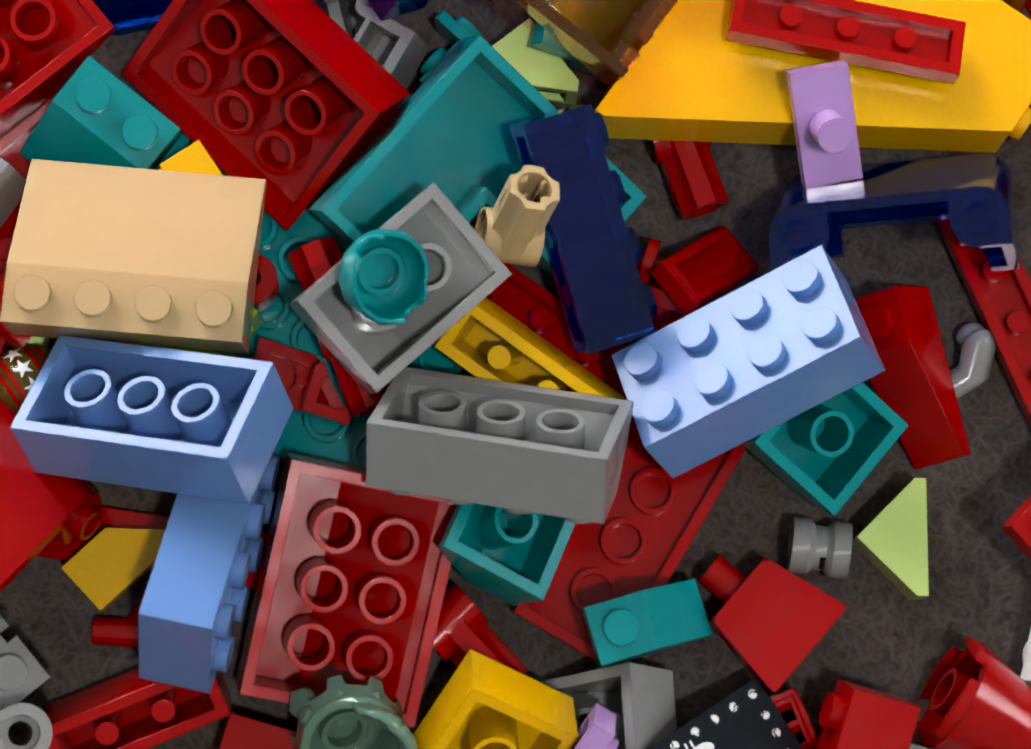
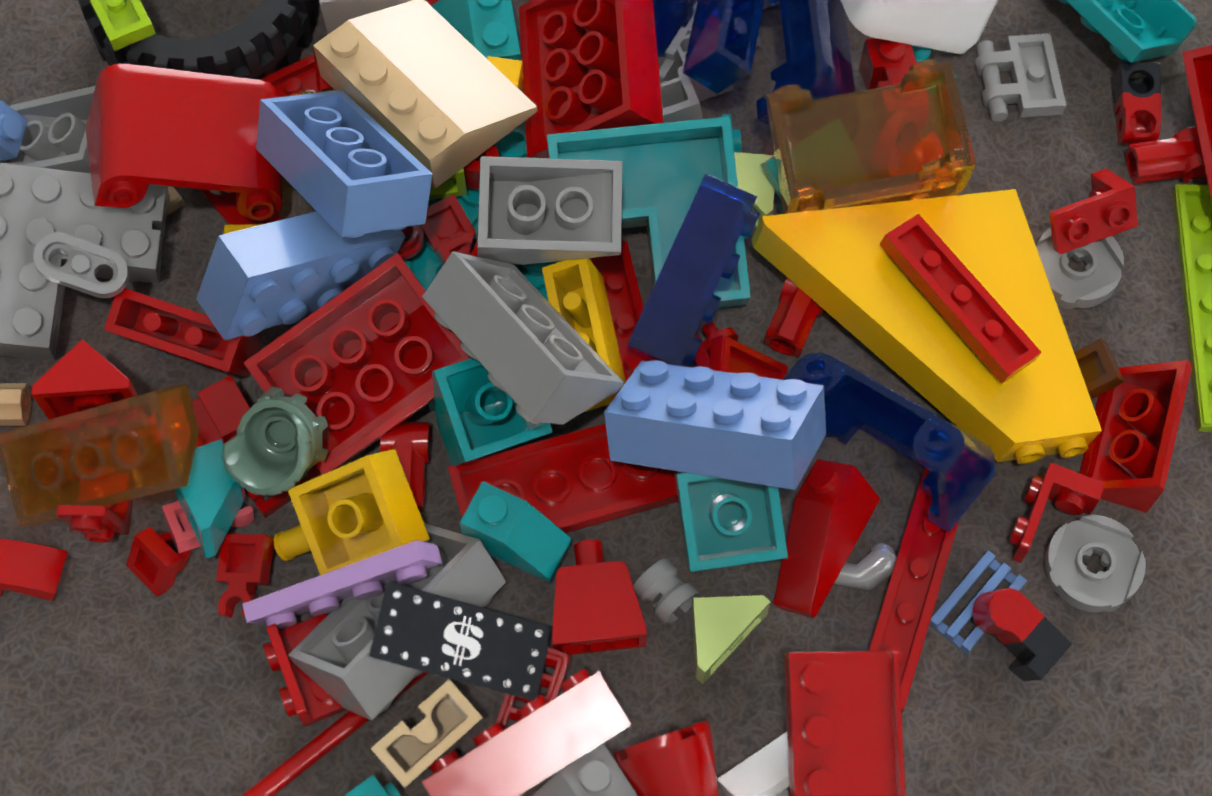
camera: 45 degrees right, 15 degrees down
(384, 276) = (540, 176): teal hair -> none
(519, 217) = (650, 230): tan piece -> none
(824, 124) = (896, 336): lavender tile -> none

